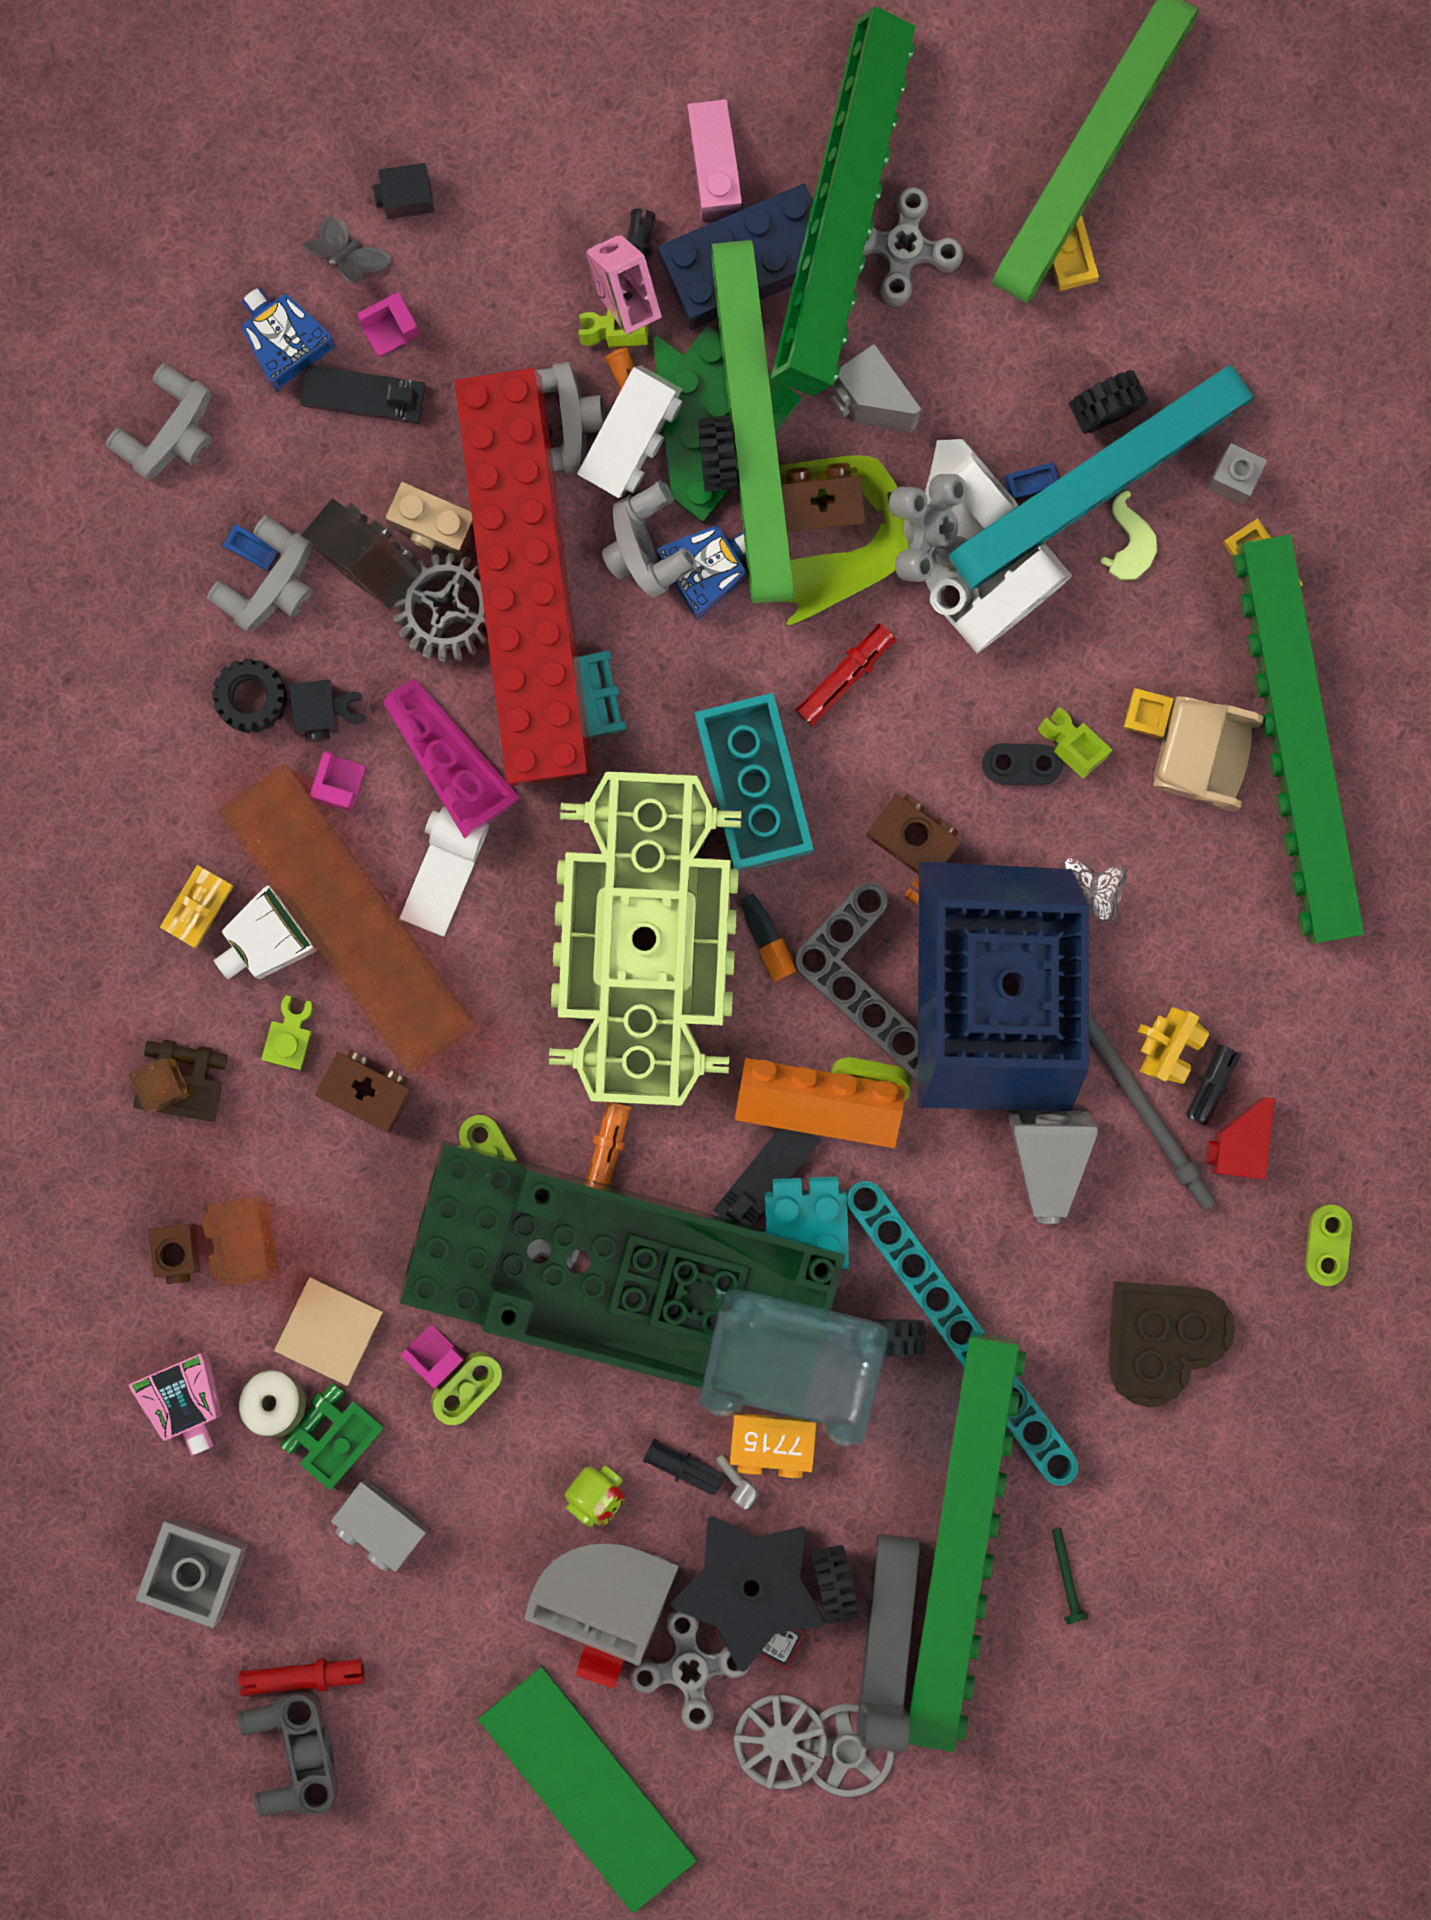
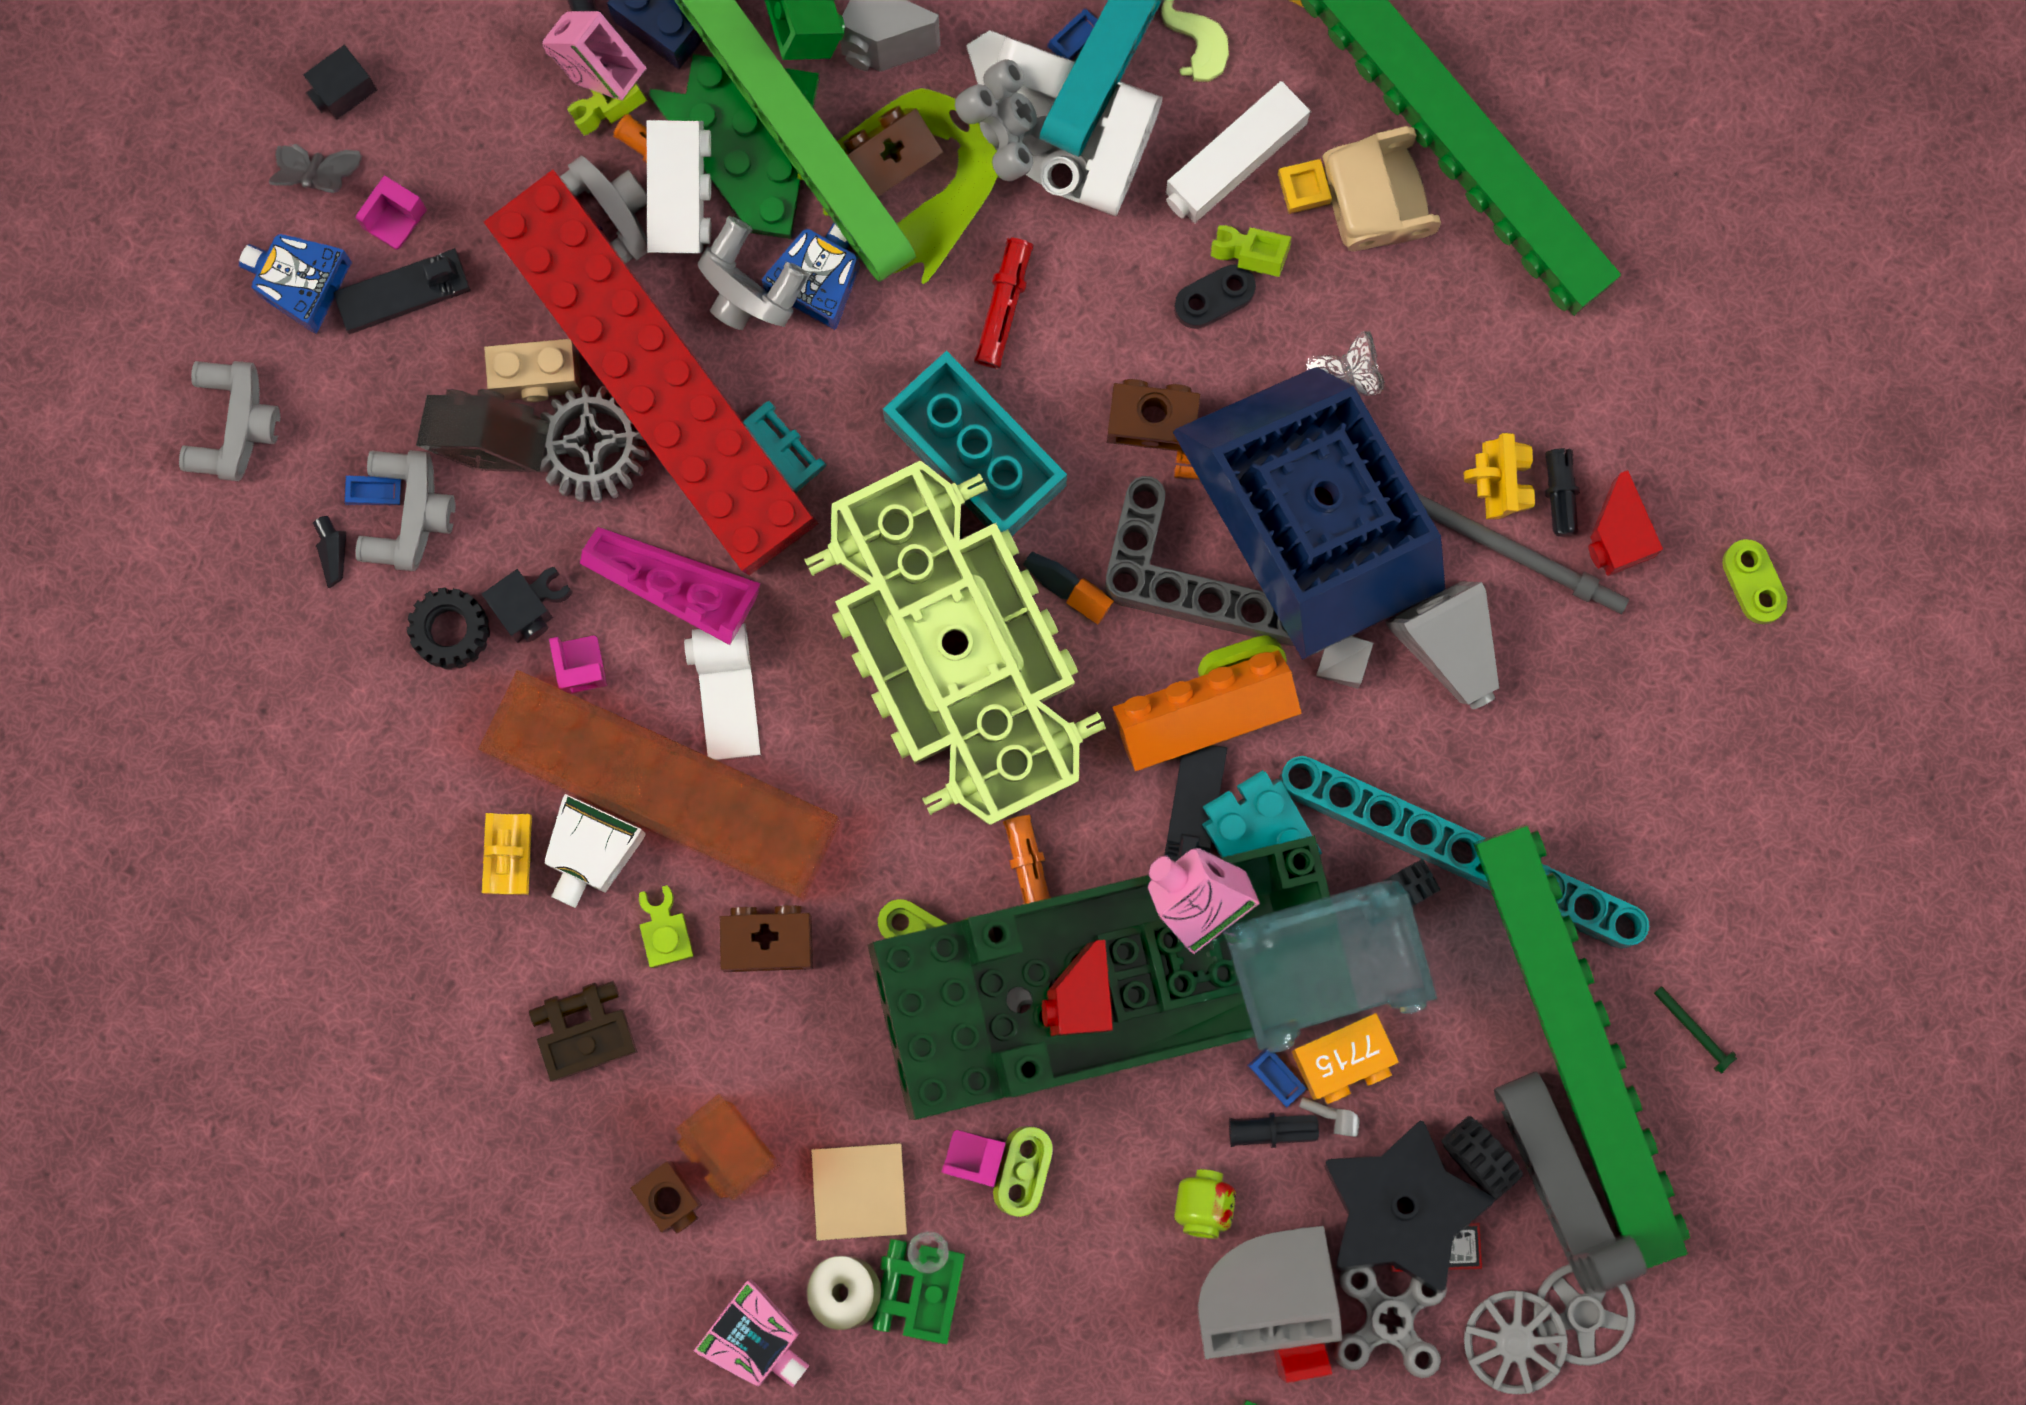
camera: 30 degrees left, 5 degrees down
(159, 1085) = (564, 1042): clear orange brick -> none
(191, 578) = (330, 550): none -> black bar
(358, 1399) = (914, 1252): none -> clear bush
(378, 1526) = (1013, 1352): light grey brick -> none
(587, 1276) = (1080, 995): none -> red slope
(711, 1430) = (1277, 1076): none -> blue piece
(717, 453) = (770, 159): black tyre -> none
(723, 1254) = (1199, 896): none -> bright pink torso
(956, 1126) = (1345, 661): none -> light grey slope
(1107, 655) = (1236, 153): none -> white brick
(1162, 1336) = (1653, 752): dark brown plate -> none

